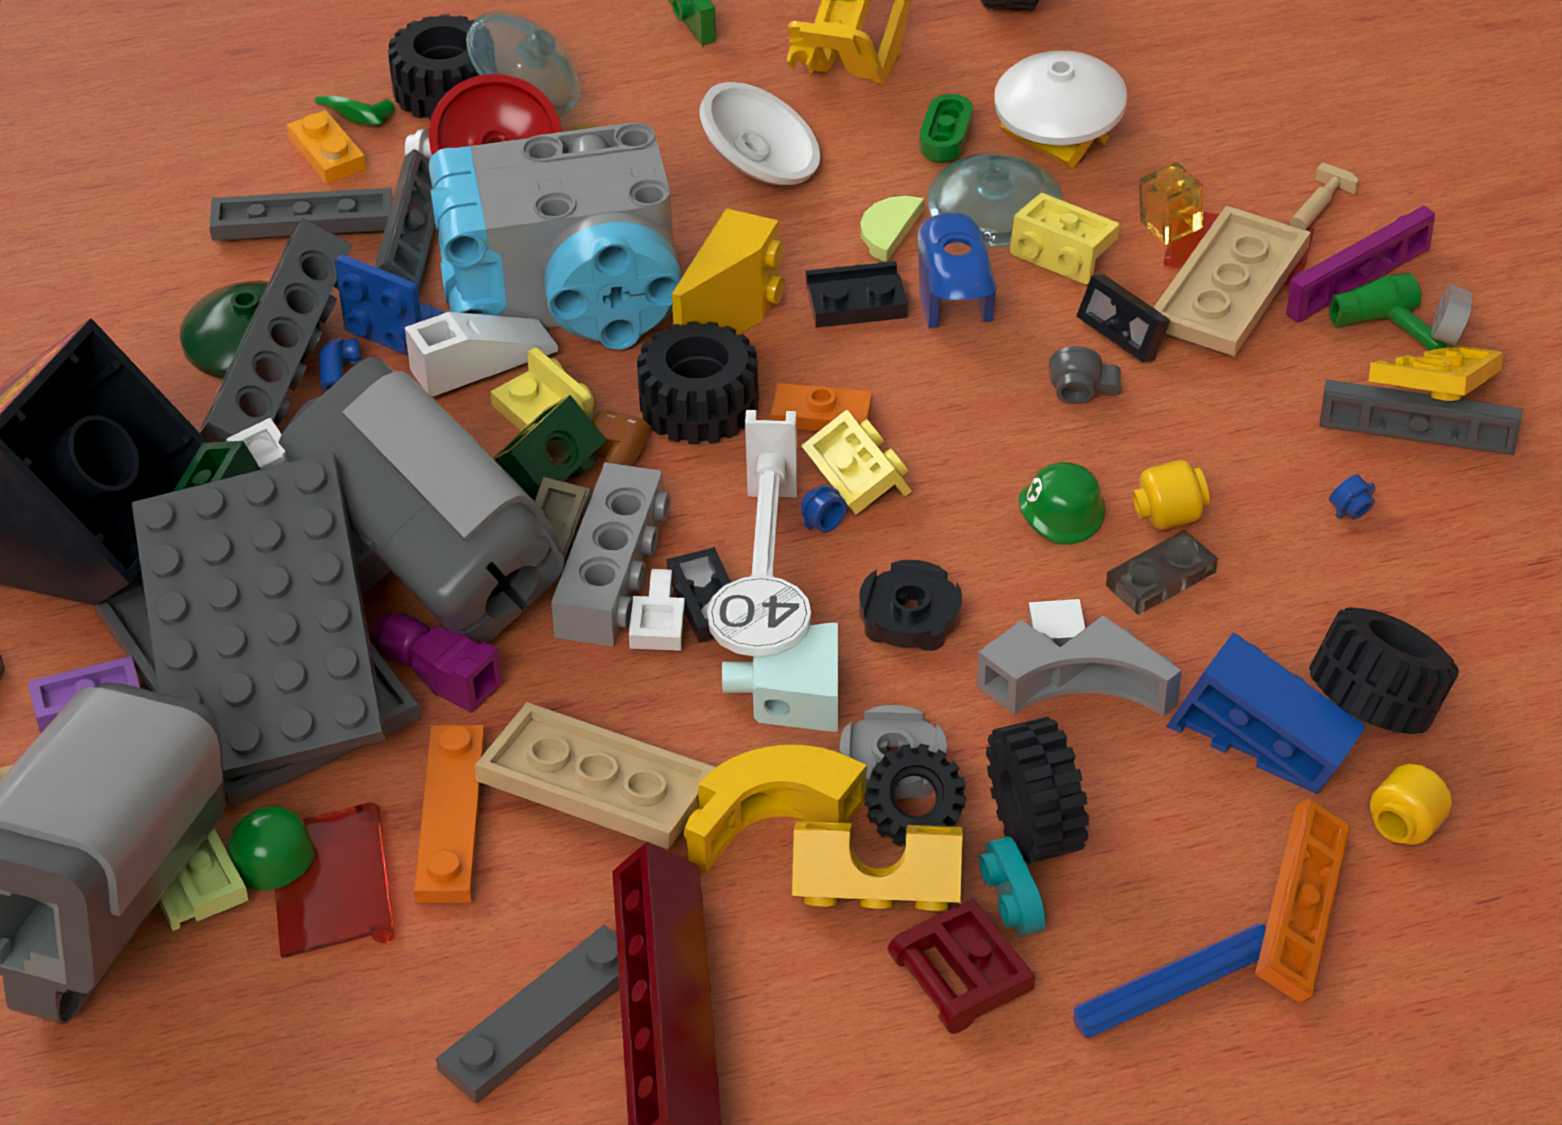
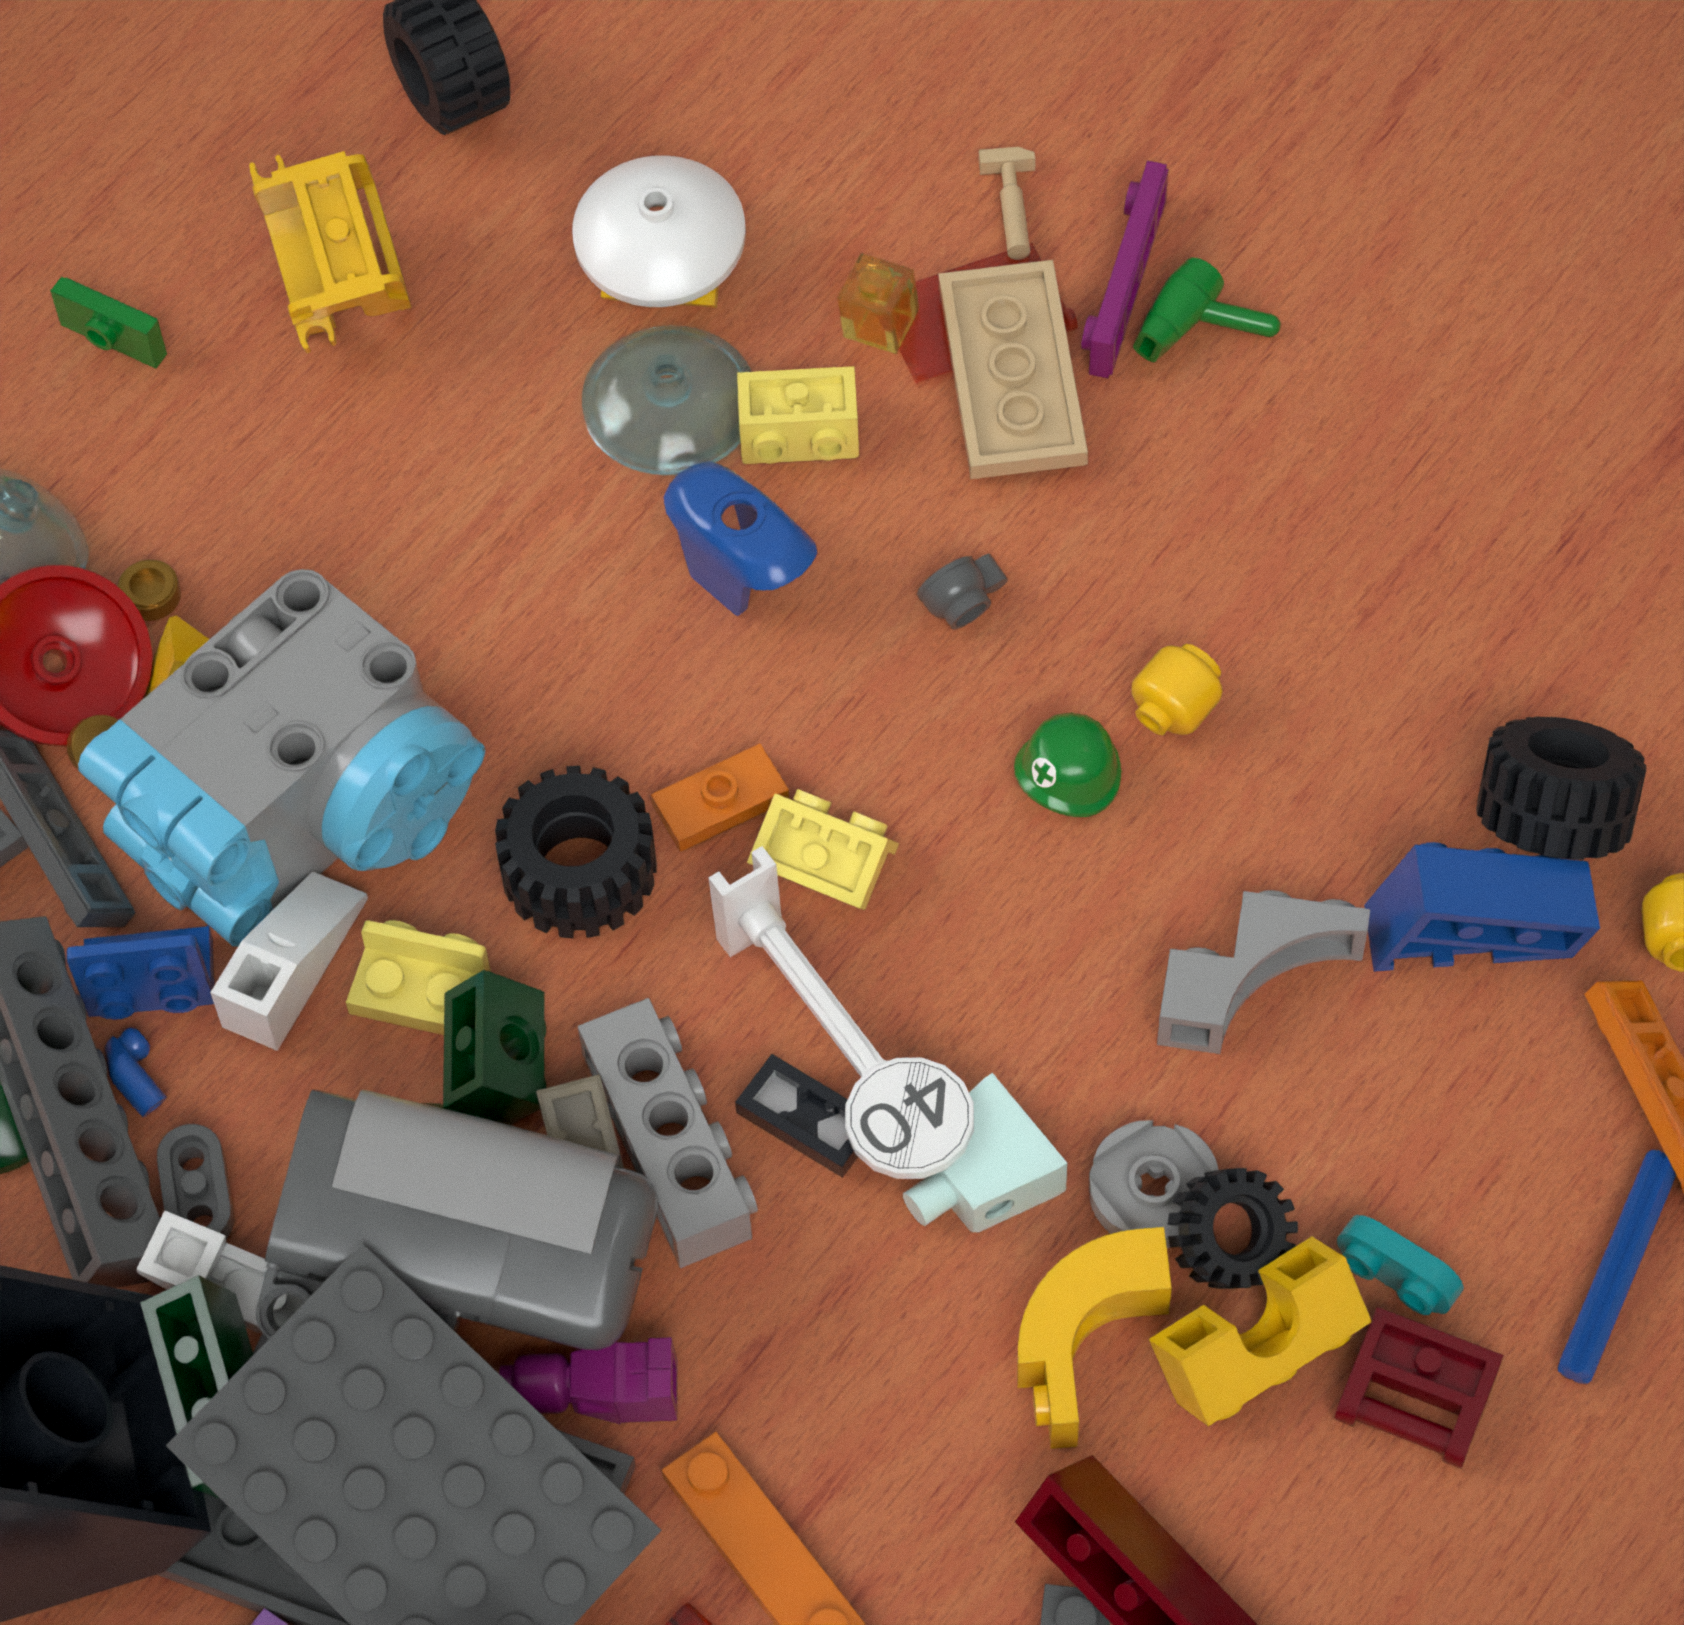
camera: 35 degrees left, 15 degrees up
(594, 774) = (888, 1414): tan plate -> none
(624, 436) = (547, 967): dark orange piece -> none
(657, 619) = (781, 1179): white plate -> none
(732, 274) = (508, 683): yellow slope -> none
(759, 134) = (362, 472): white dish -> none
(823, 509) = (833, 928): blue plate -> none
(856, 294) = (629, 620): black plate -> none
(888, 223) = (585, 505): yellowish green tile -> none
(910, 627) = (1016, 1025): black plate -> none
(945, 127) = (546, 338): green plate -> none
(1037, 789) = (1358, 1148): black tyre -> none
(1057, 619) = (1181, 918): white tile -> none
(1123, 318) = (946, 487): black piece -> none
(1161, 572) = (1229, 787): clear smoke piece -> none
(1353, 497) = (1345, 578): blue plate -> none
(1420, 417) = (1335, 437): dark grey plate -> none
(1443, 371) = (1329, 370): yellow wing -> none
(1451, 314) = (1273, 286): light grey beam -> none

